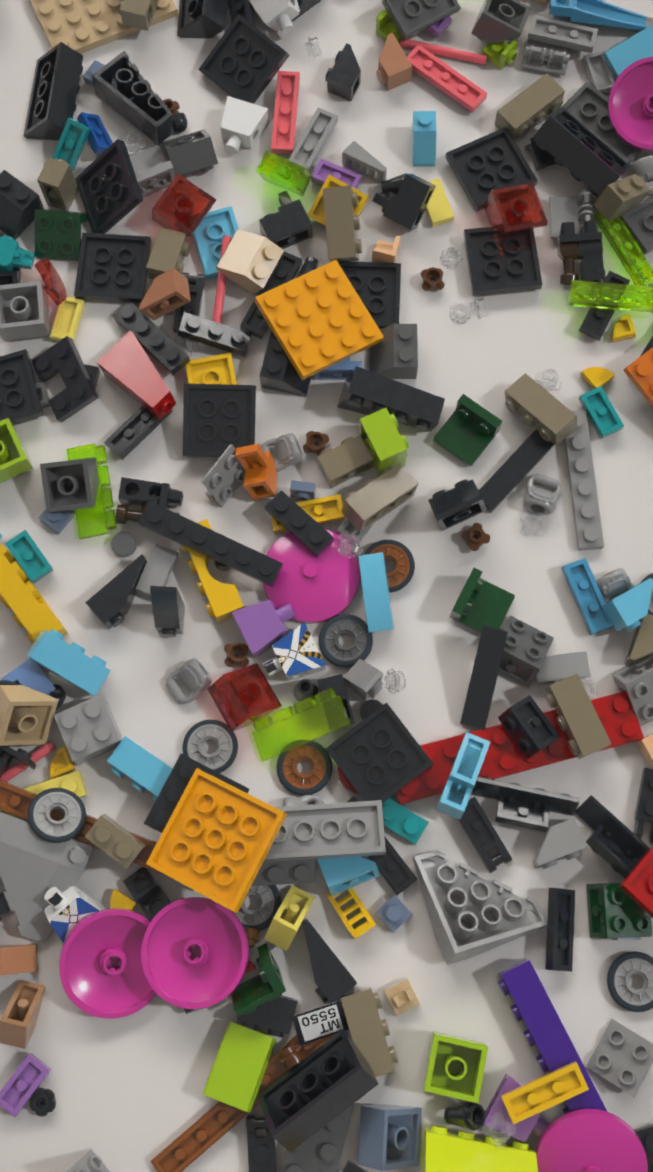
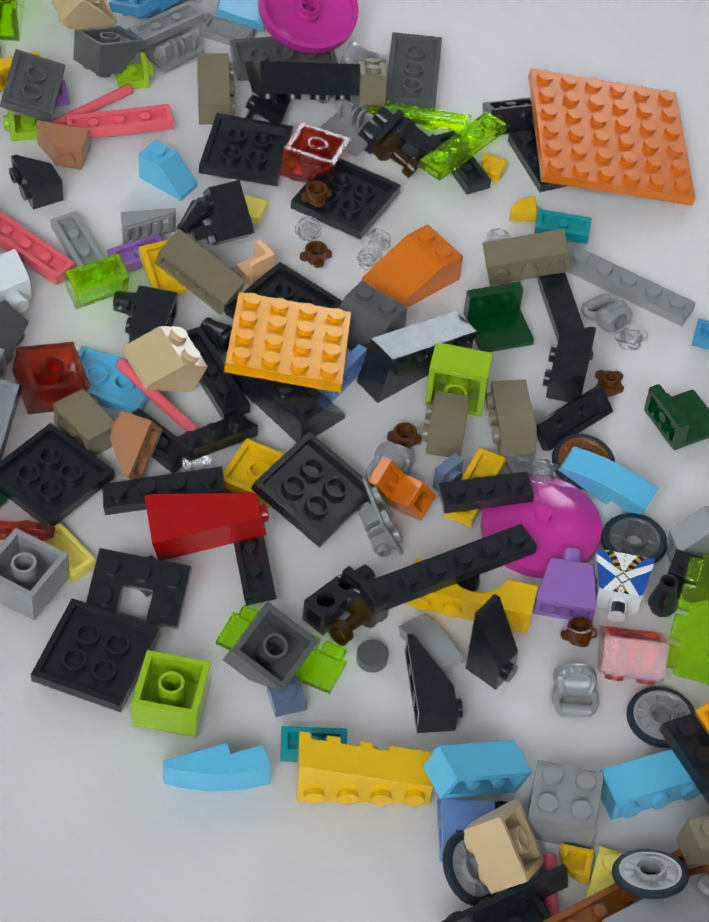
camera: 60 degrees left, 25 degrees down
(418, 534) = (573, 417): none -> black plate
(468, 347) = (416, 267): none -> orange slope
(479, 234) = (316, 193): none -> reddish brown plate

